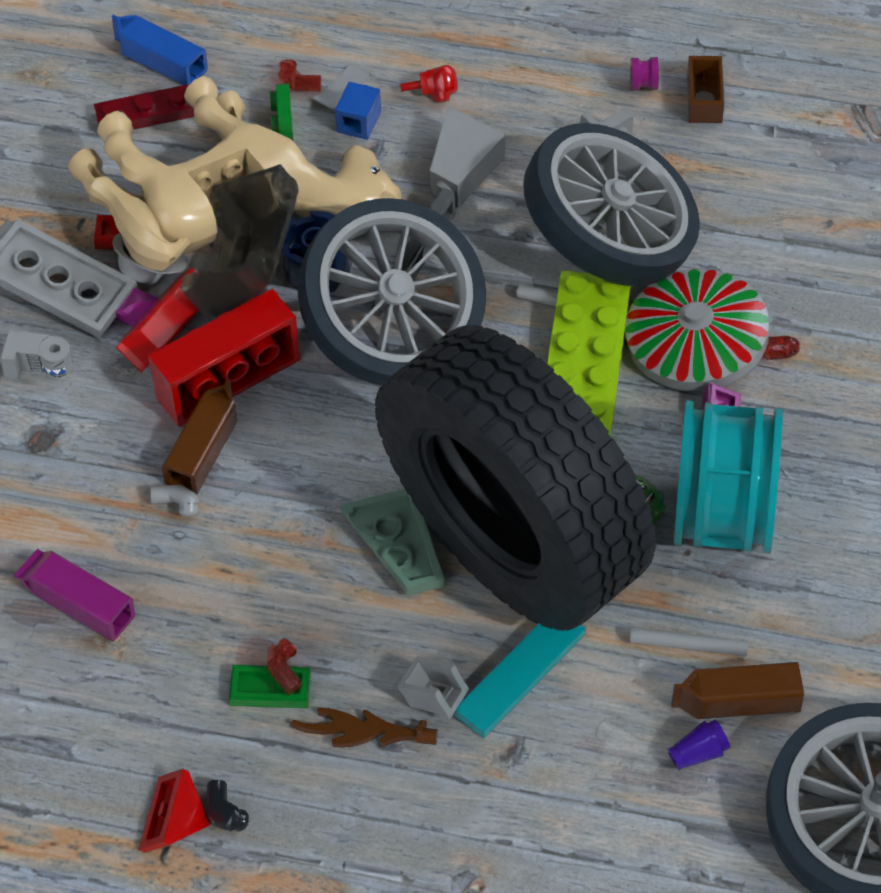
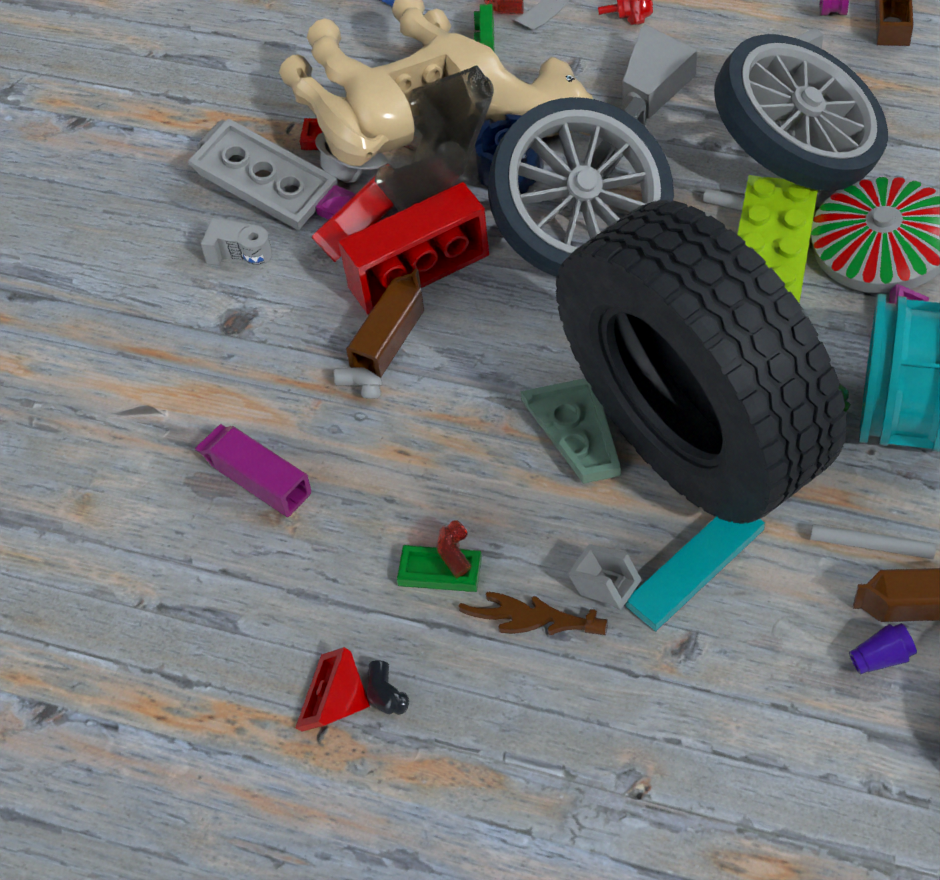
camera: 10 degrees right, 0 degrees up
(150, 107) = (366, 26): dark red plate -> none
(358, 110) = (556, 29): blue brick -> none

